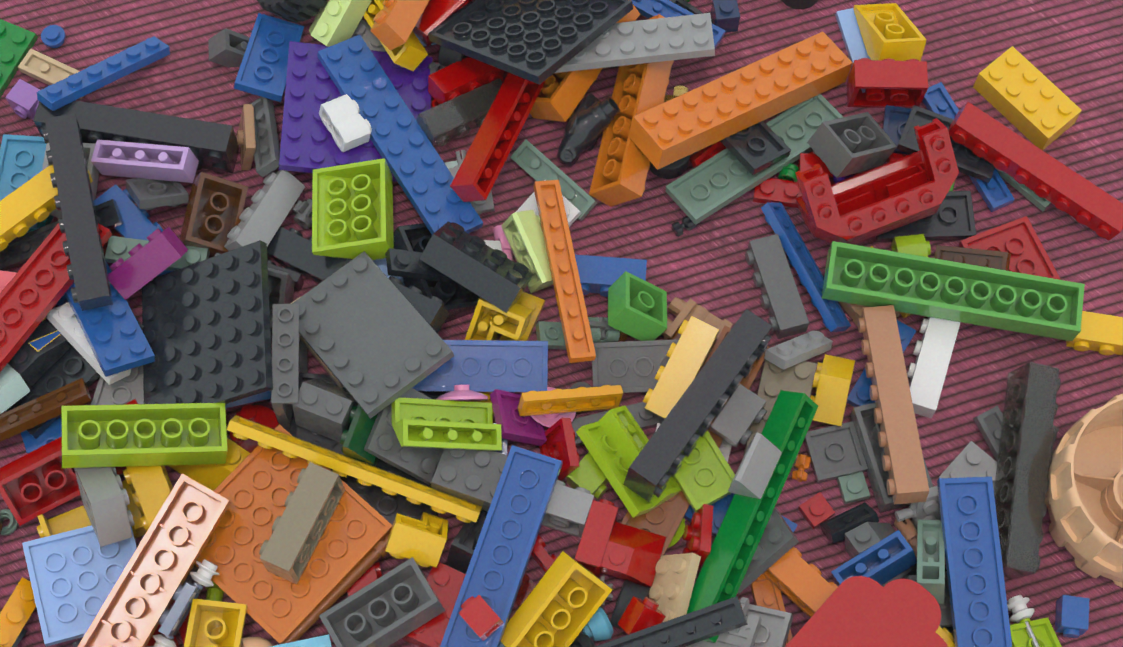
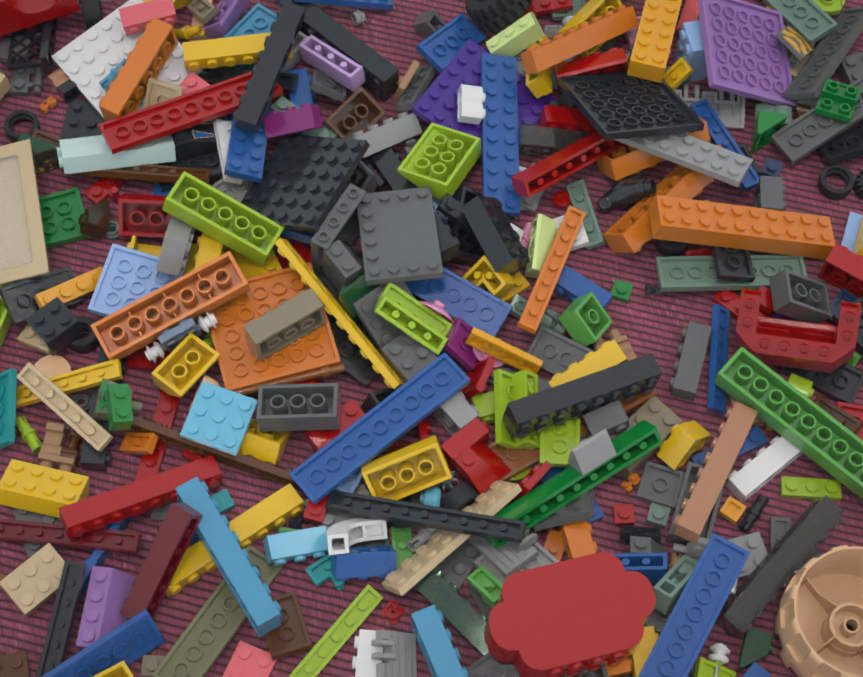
camera: 30 degrees right, 5 degrees down
(135, 85) = (358, 17): none -> light grey plate
(418, 538) = (351, 378): yellow brick -> none
(480, 617) = (356, 443): brick -> none
(513, 177) = (561, 200): none -> red tile
(640, 615) = (460, 501): red brick -> none
(649, 247) = (621, 291): none -> green plate
(744, 43) = (770, 193): none -> dark grey brick
(798, 349) = (676, 405): light grey plate -> none
(930, 432) = (732, 510): none -> light orange plate
(952, 424) = (753, 513): none -> black pin
(992, 357) = (809, 488): none -> lime plate
(1051, 580) = (755, 648): none -> dark green slope

